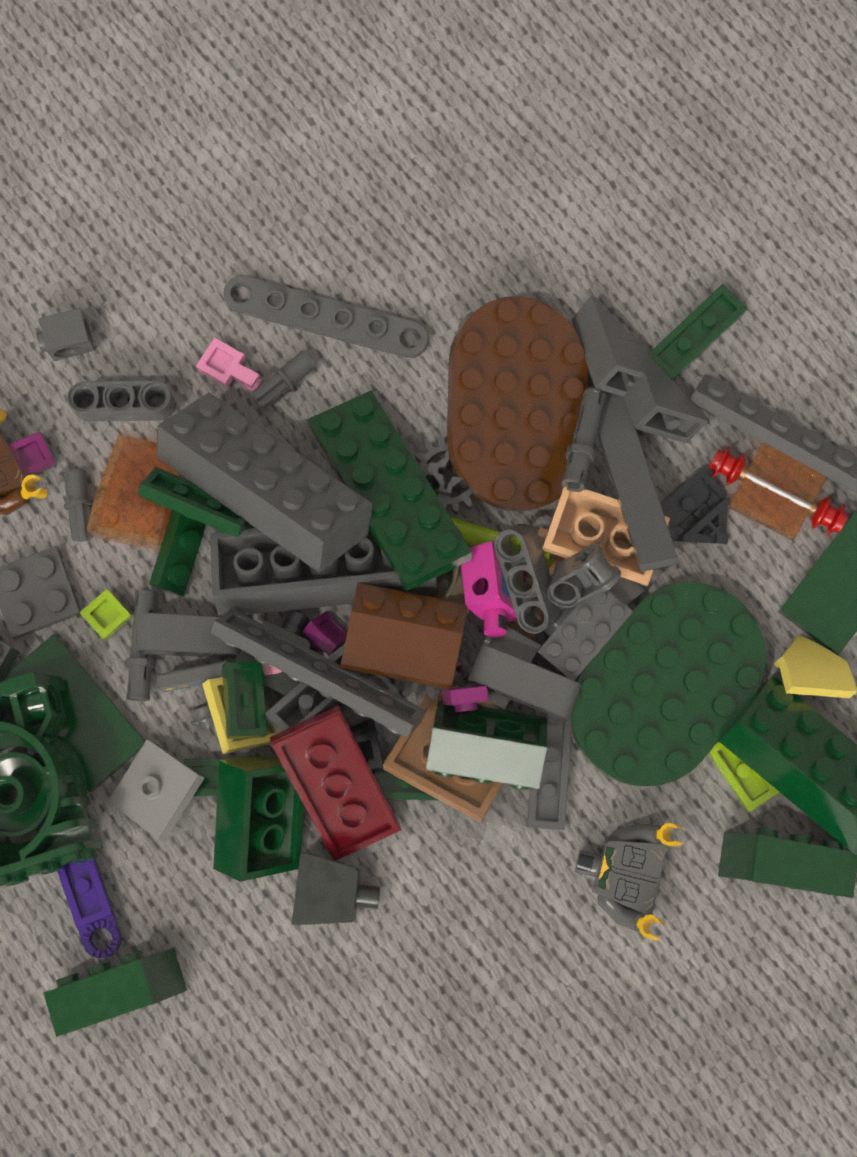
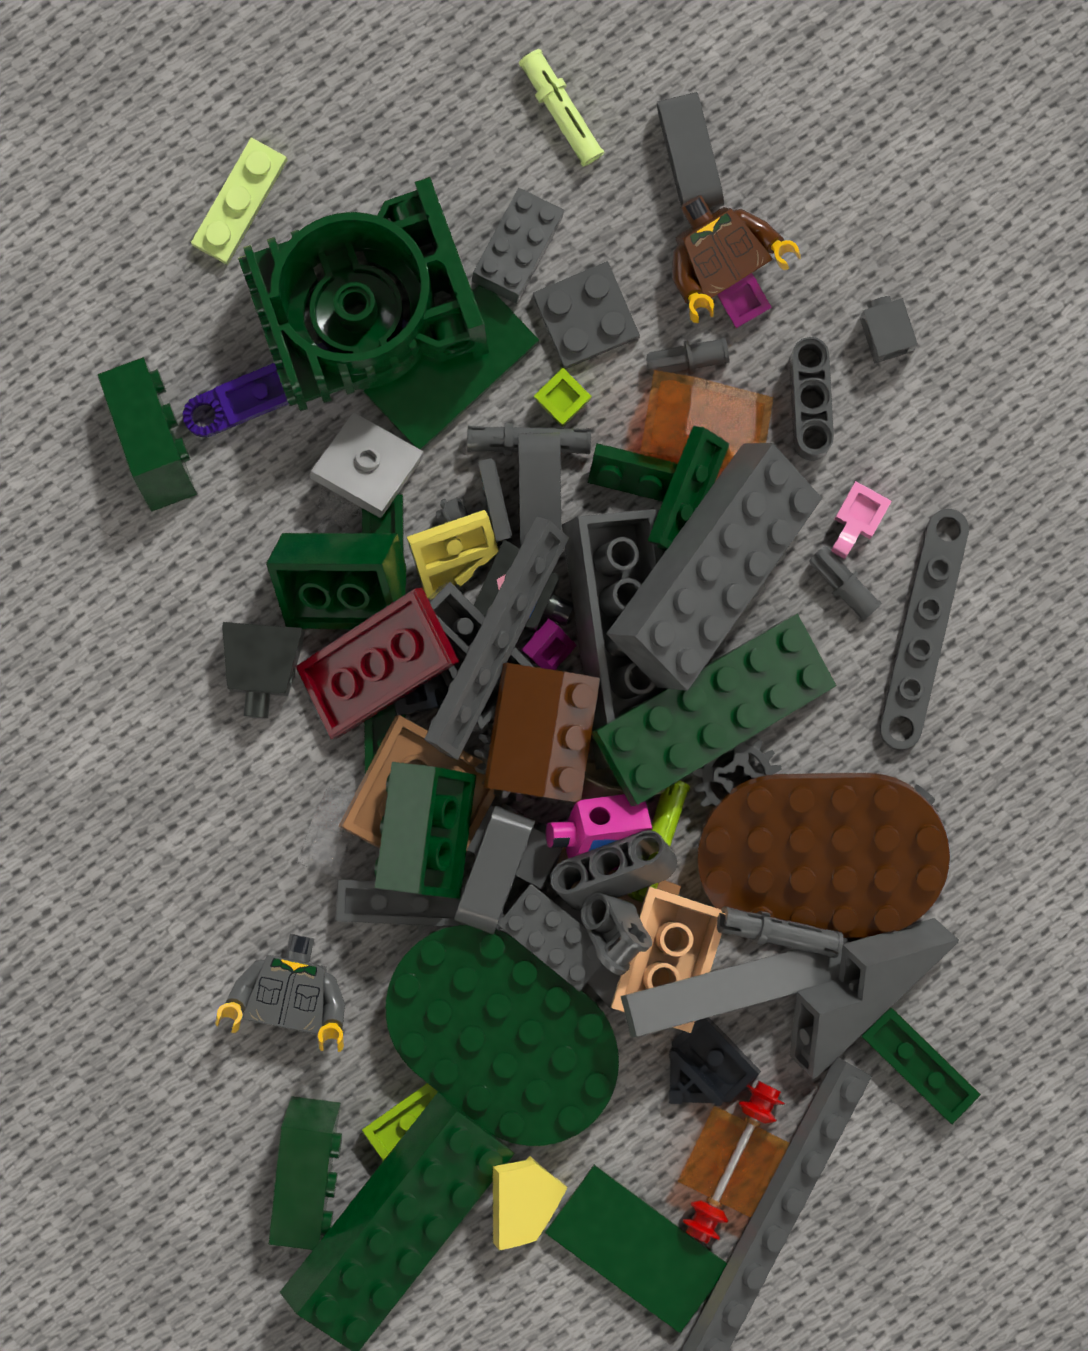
camera: 85 degrees right, 5 degrees up
(244, 700) = (465, 557): dark green plate -> none
(465, 698) = (475, 803): magenta plate -> none

